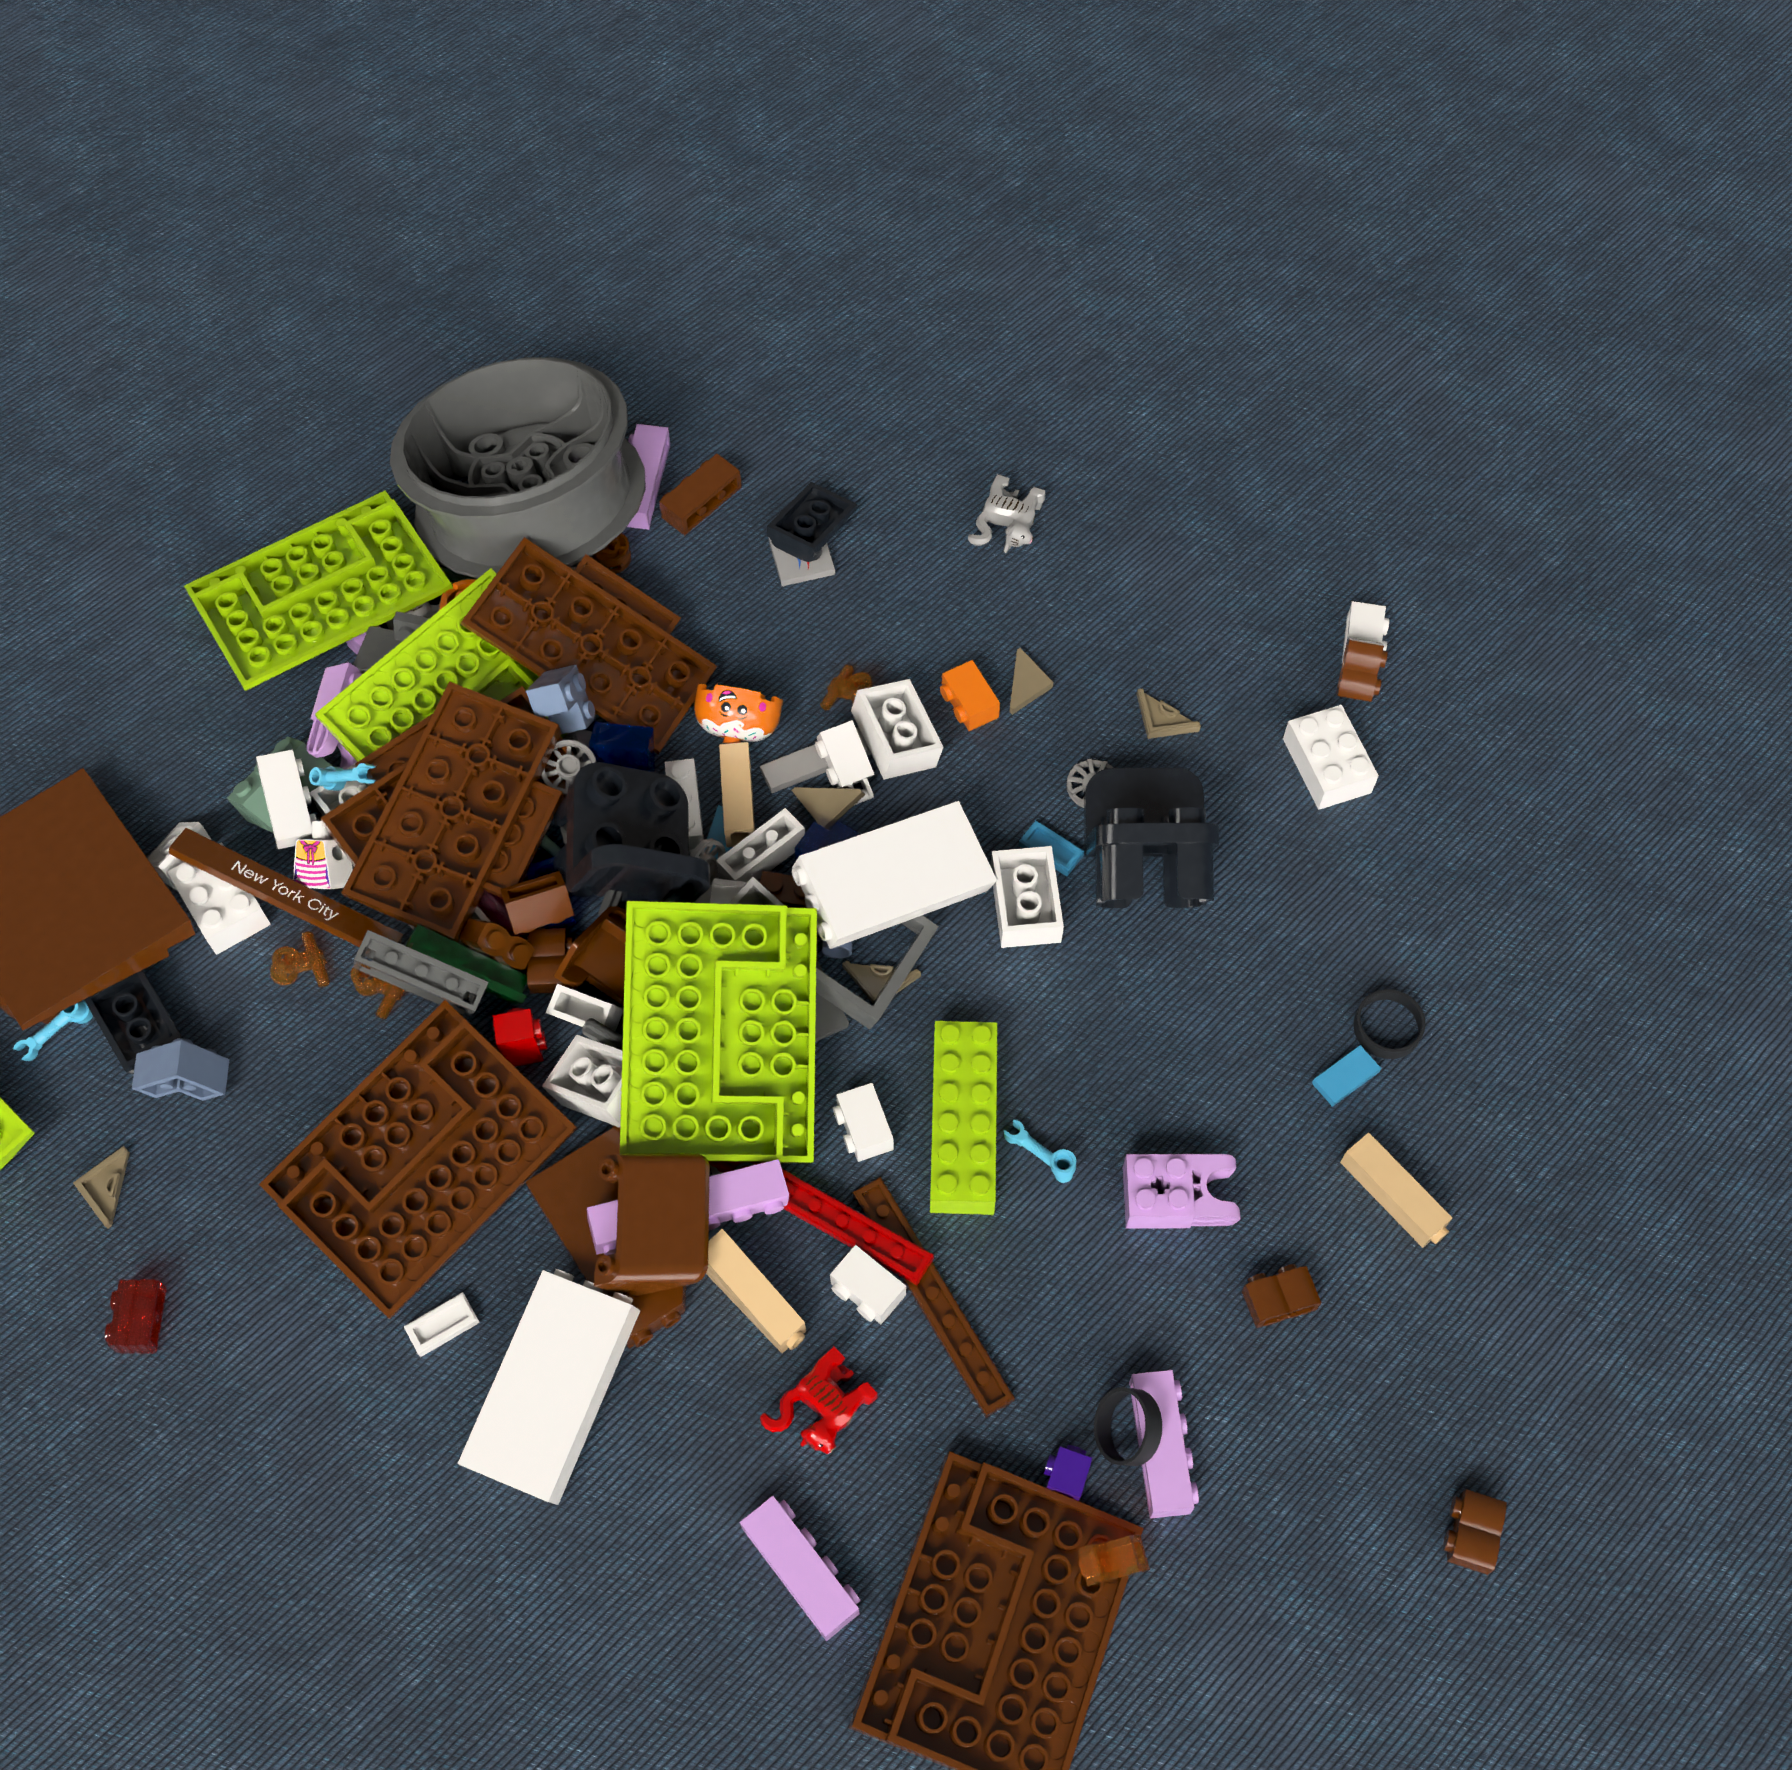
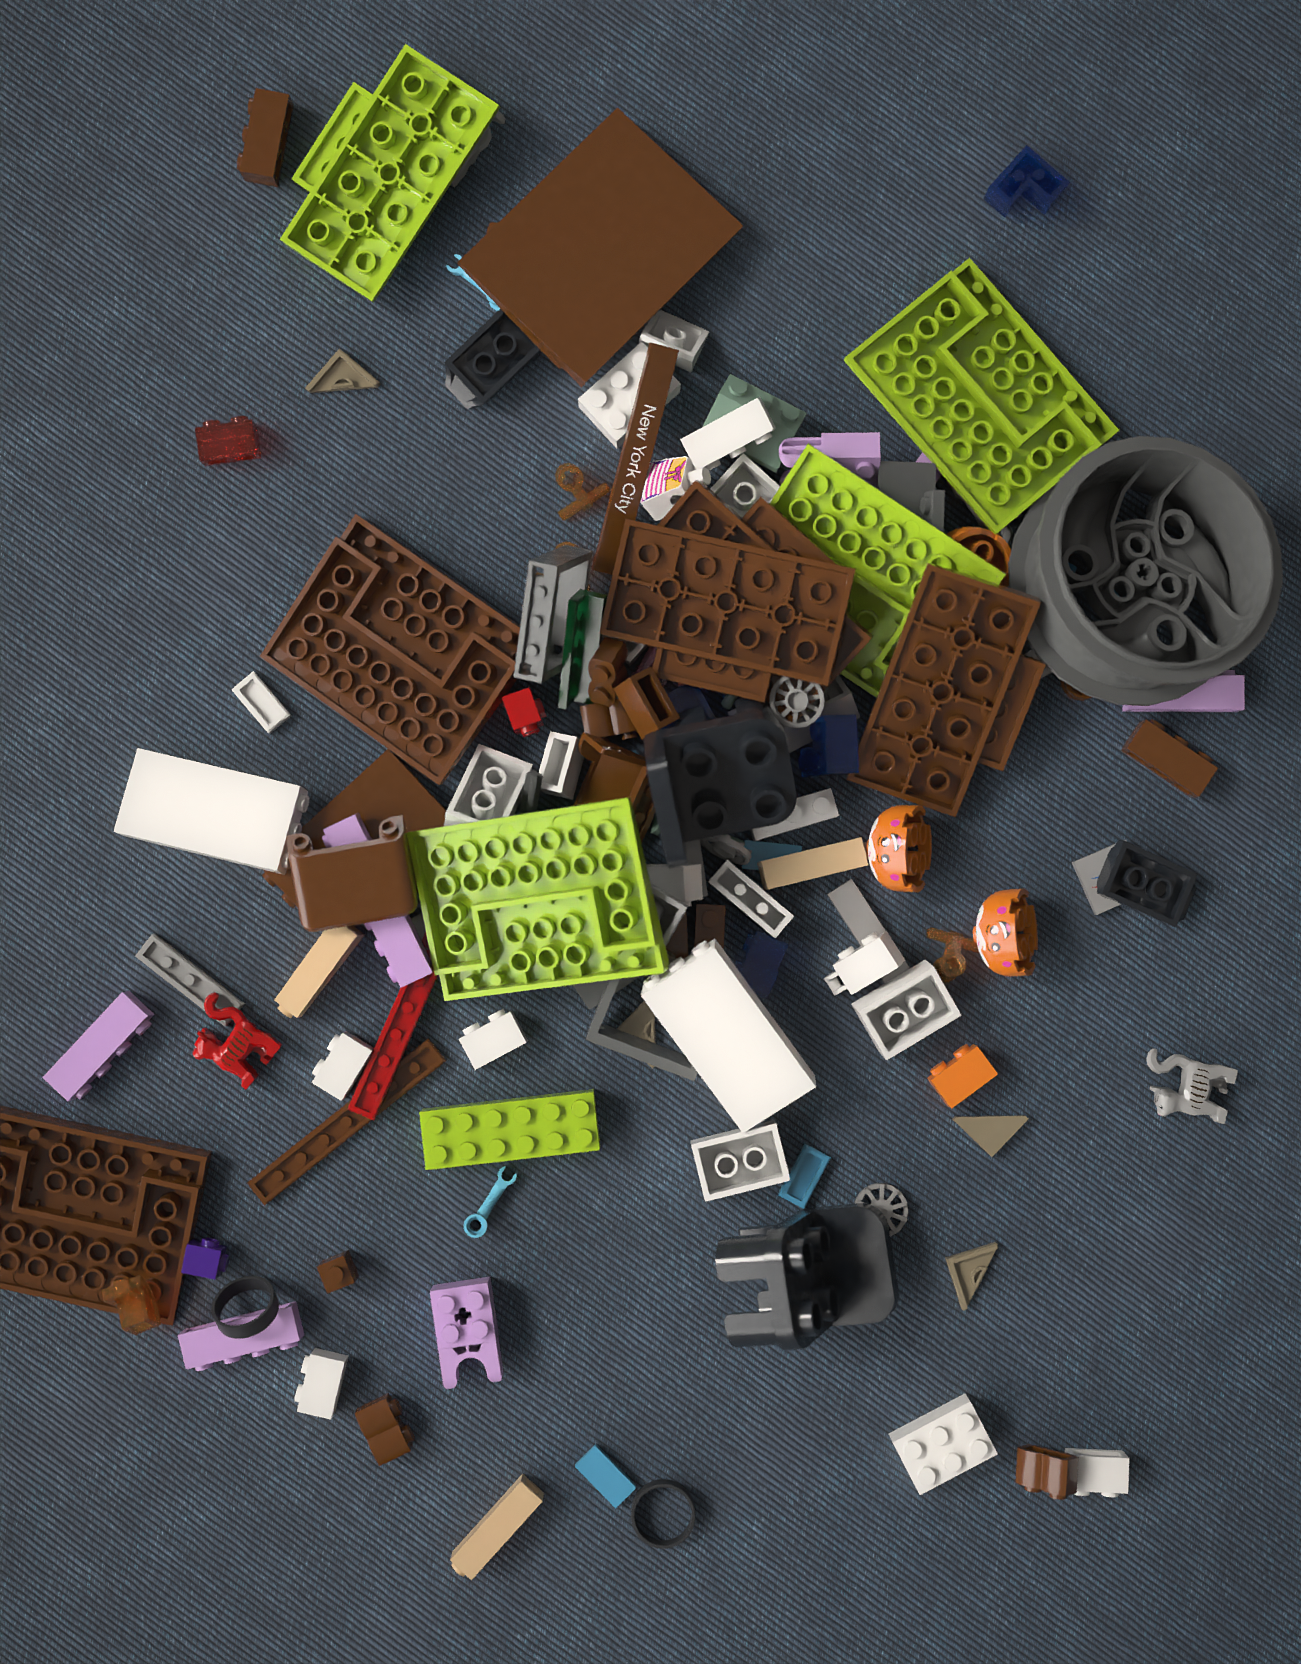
camera: 80 degrees right, 25 degrees up
(128, 530) = (1028, 178): none -> clear blue brick
(182, 1069) = (448, 414): sand blue brick -> none
(335, 777) = (755, 476): medium azure brick -> none
(562, 699) = (867, 678): sand blue brick -> none
(735, 1457) = (185, 975): none -> light grey tile
(827, 804) = (817, 951): dark tan tile -> none
(837, 635) = (997, 934): none -> orange cylinder
(1098, 1321) = (337, 1271): none -> reddish brown brick
(1224, 1358) = (322, 1383): none -> white piece
(1475, 1531) = (205, 1605): reddish brown brick -> none

